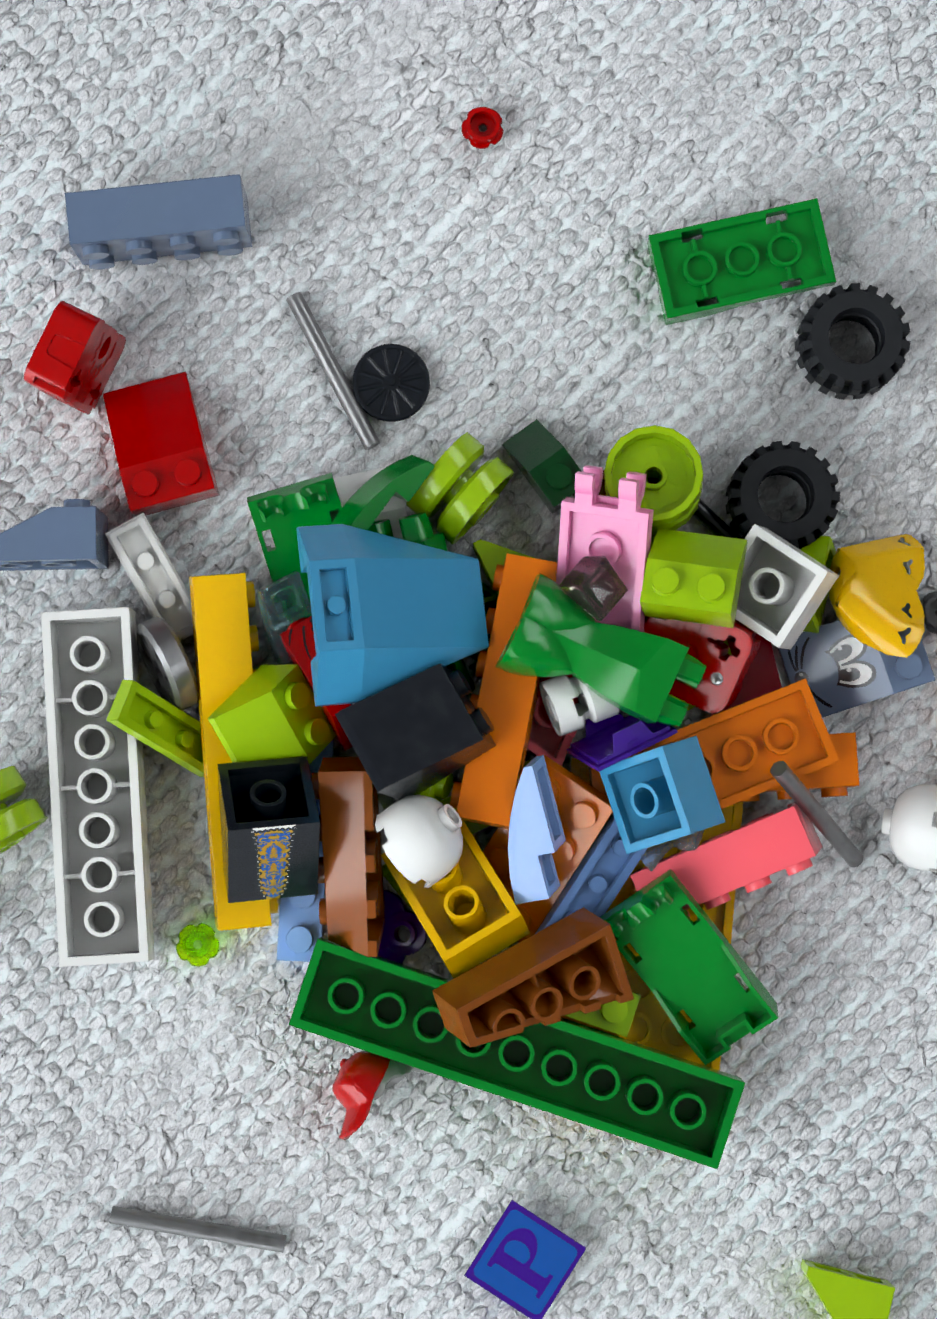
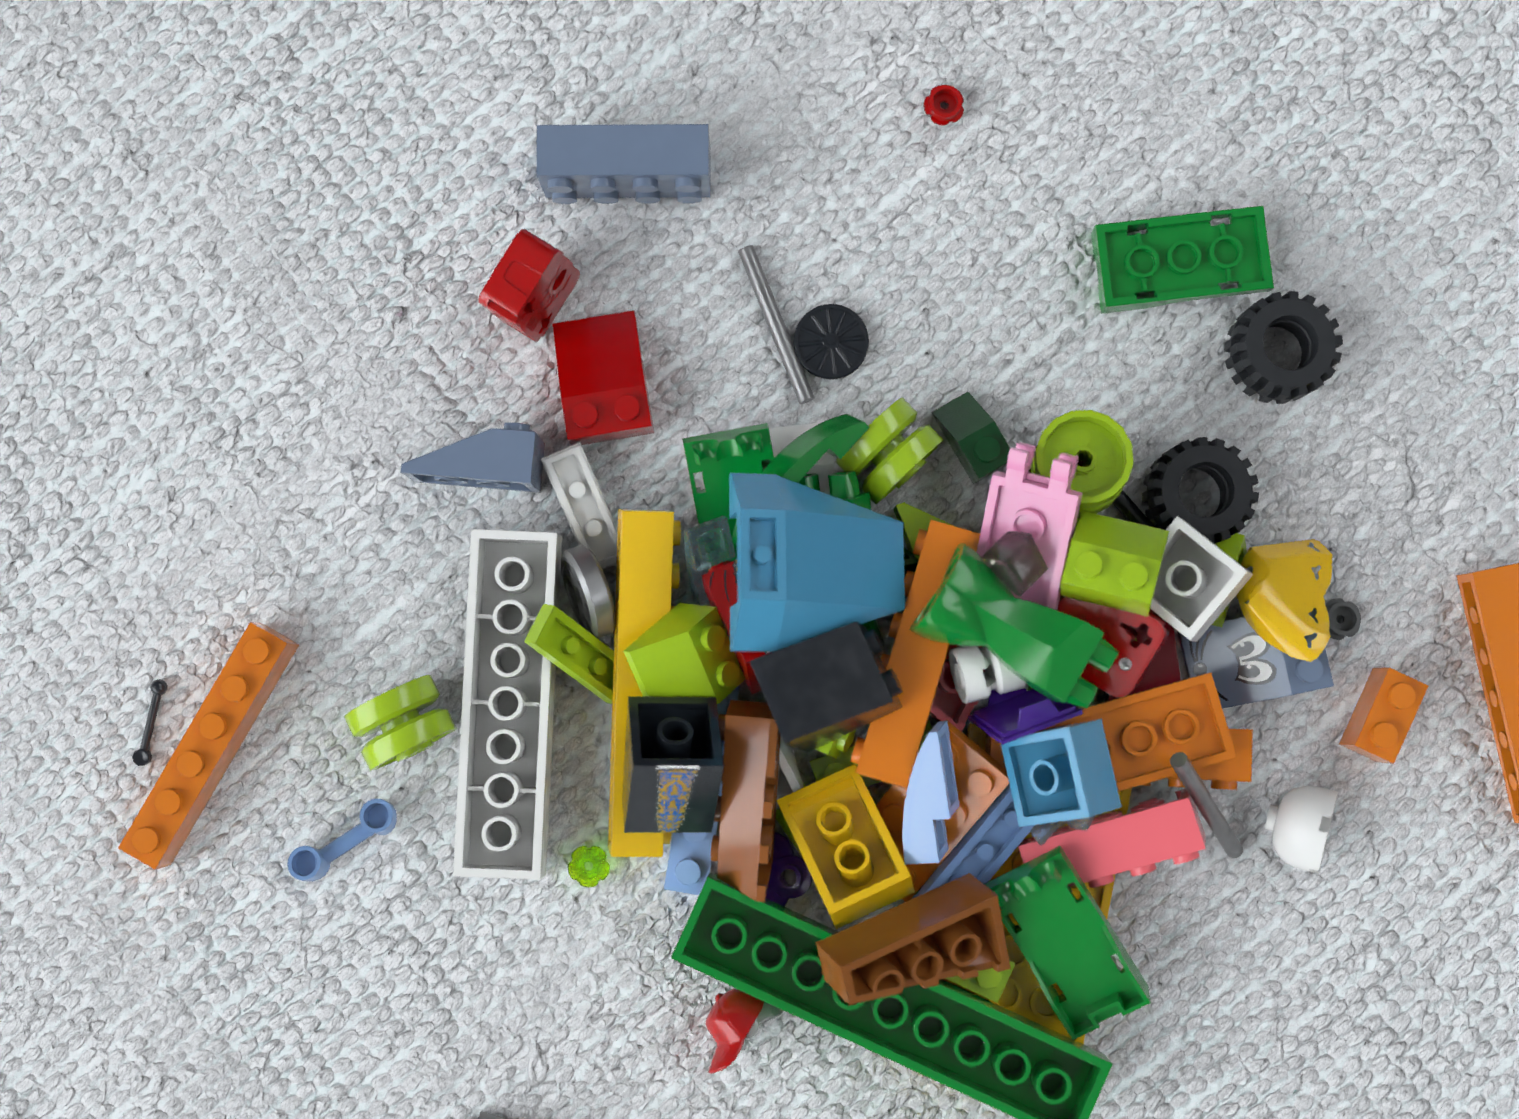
camera: 10 degrees right, 0 degrees up
(421, 837) = (821, 791): white cylinder -> none

